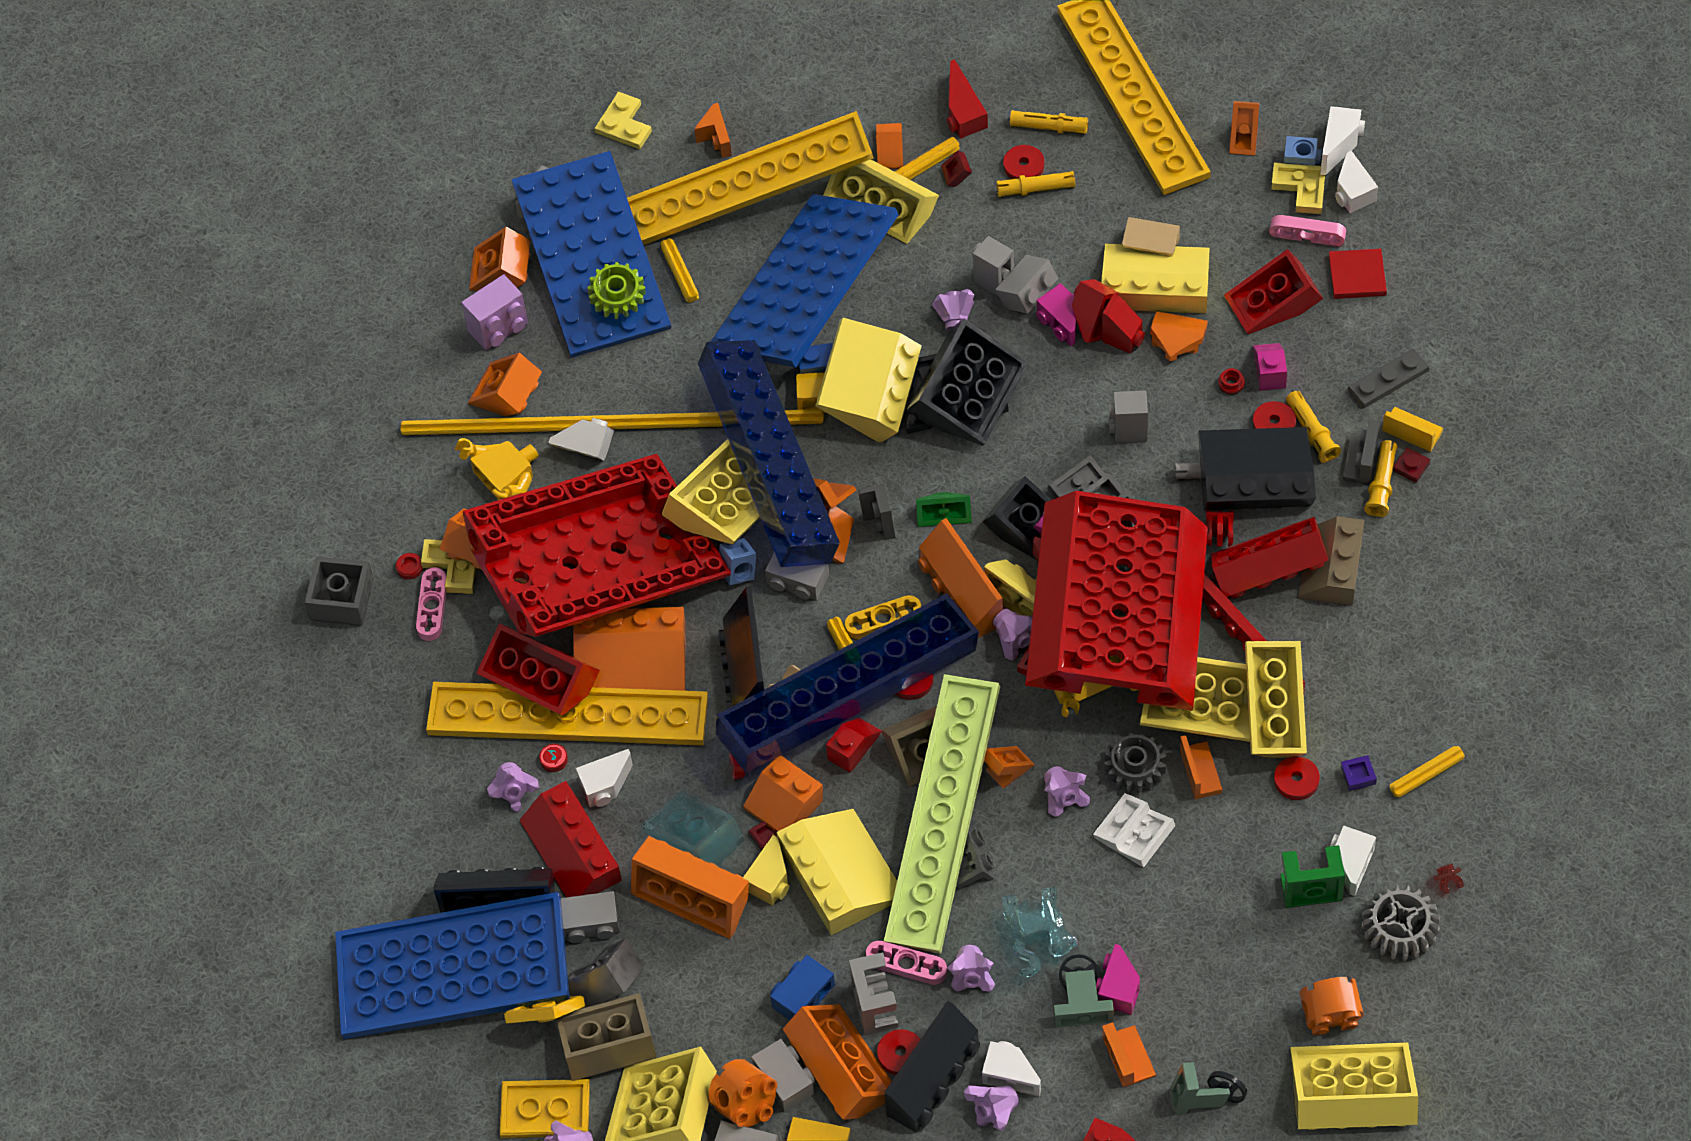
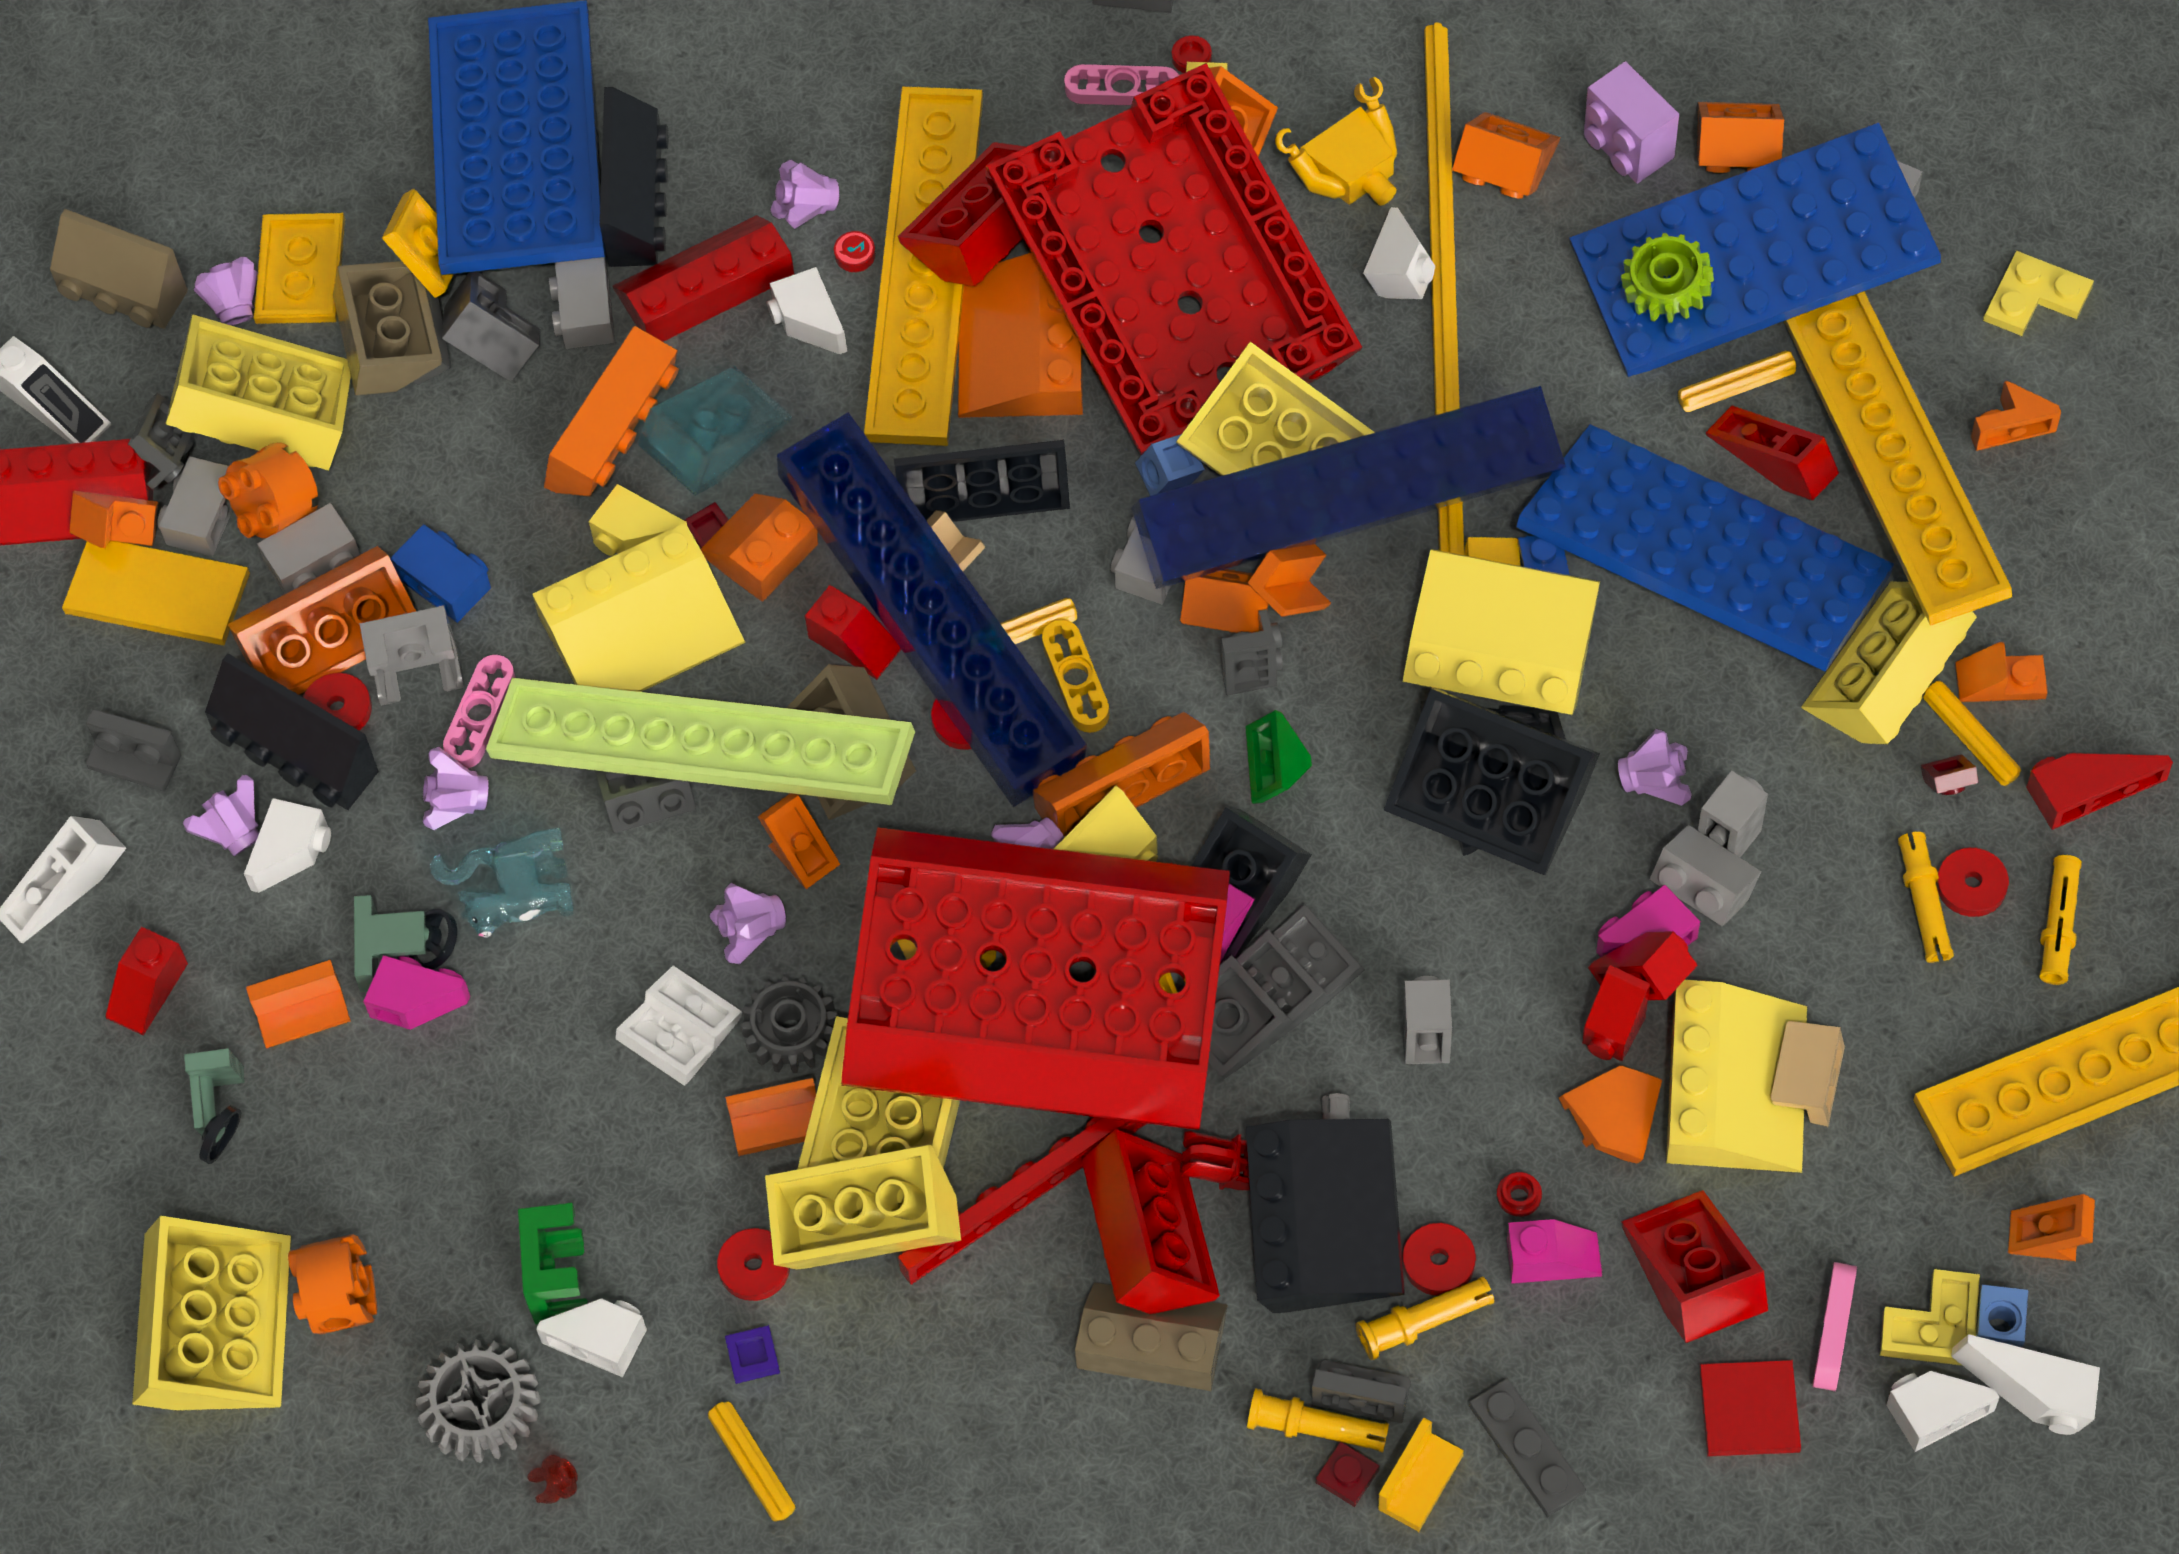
camera: 90 degrees right, 5 degrees up
(732, 249) = (1779, 452): none -> red slope

